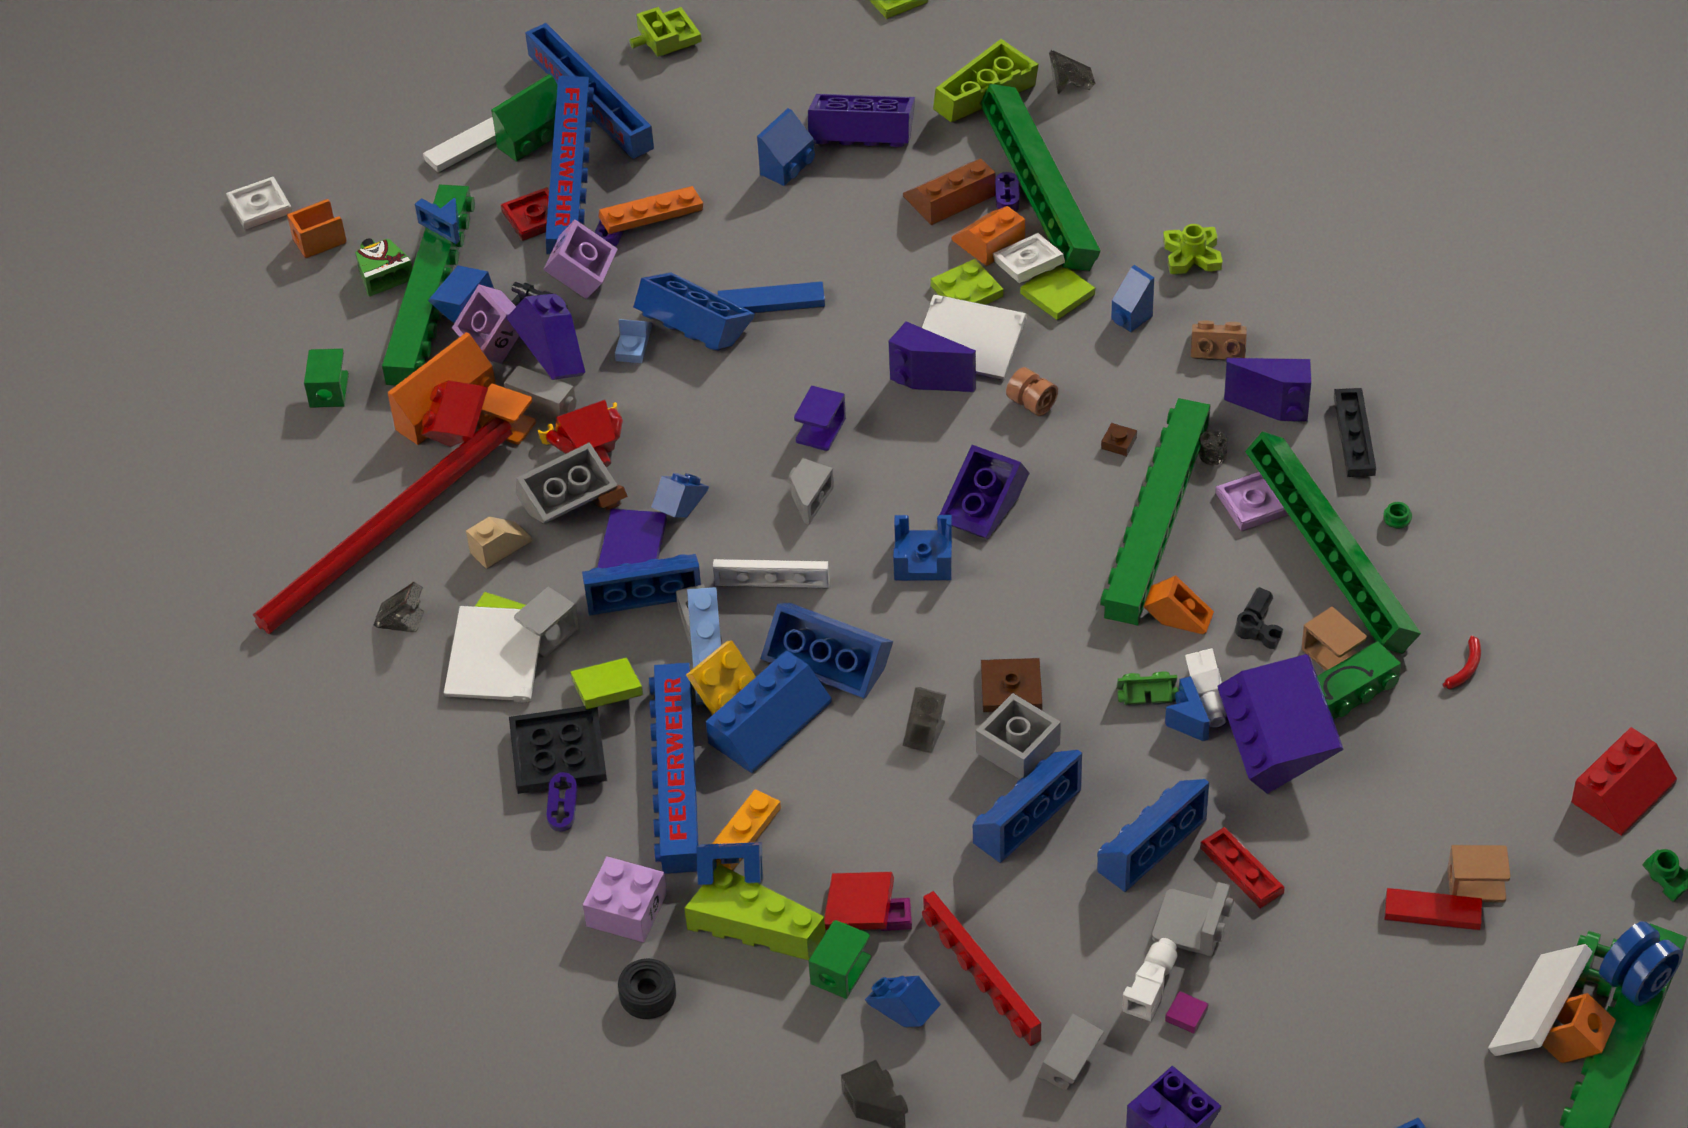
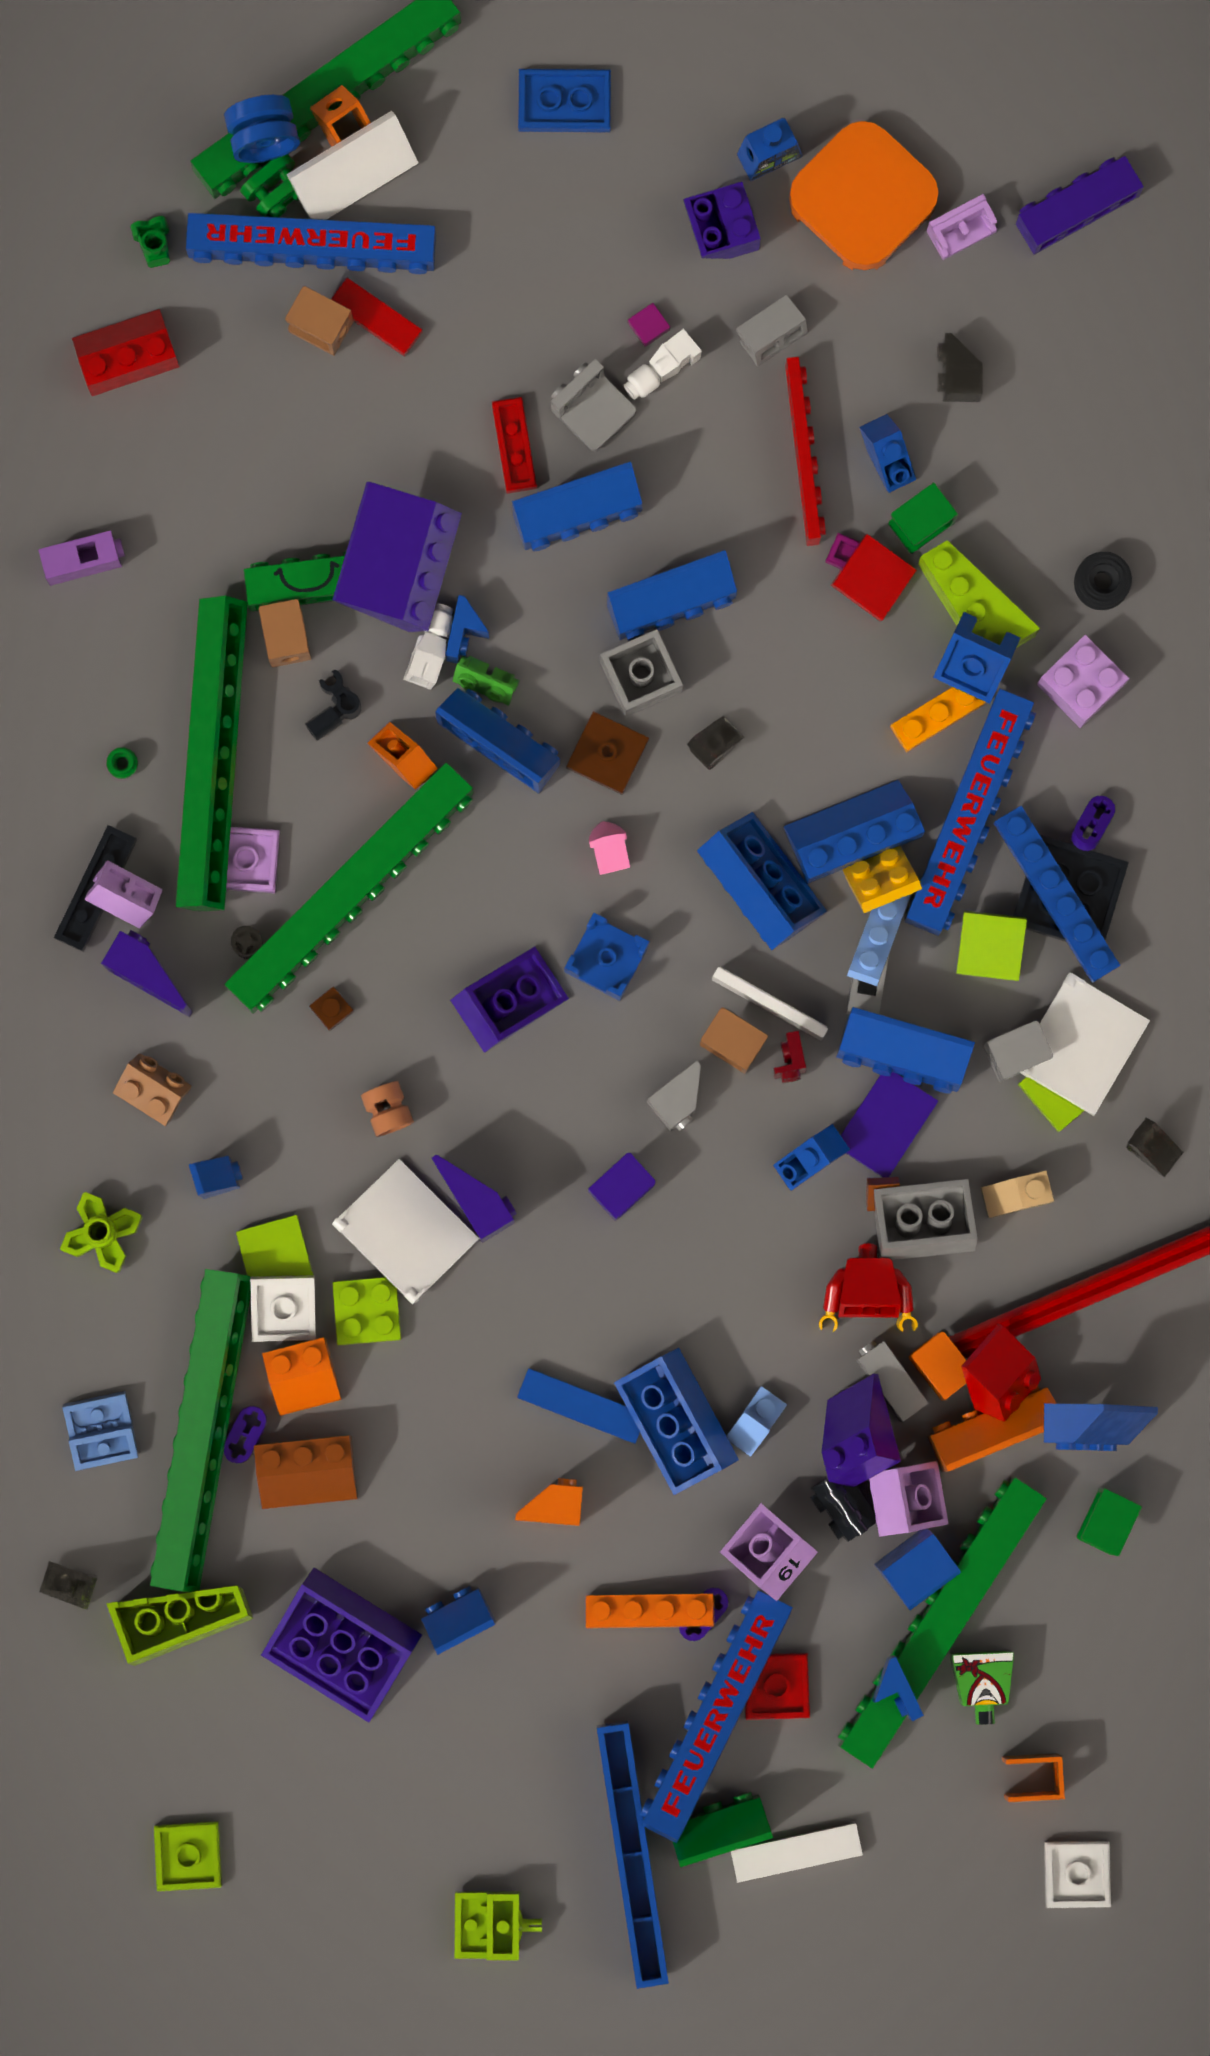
camera: 160 degrees left, 35 degrees up
(365, 399) = (1094, 1425): none -> blue slope
(569, 734) = (1056, 894): none -> blue plate
(730, 533) = (792, 1053): none -> dark red bracket
(756, 225) = (555, 1504): none -> orange slope
(786, 535) = (733, 1040): none -> medium nougat piece
(970, 618) = (609, 847): none -> bright pink tile
(1107, 639) = (498, 739): none -> blue slope
(1111, 157) = (100, 1430): none -> medium blue slope
(1328, 425) = (124, 894): none -> lavender hinge
(1469, 668) = (170, 553): red piece -> none
(1529, 934) = (311, 242): none -> blue brick
(1539, 625) = (81, 557): none -> medium lavender brick

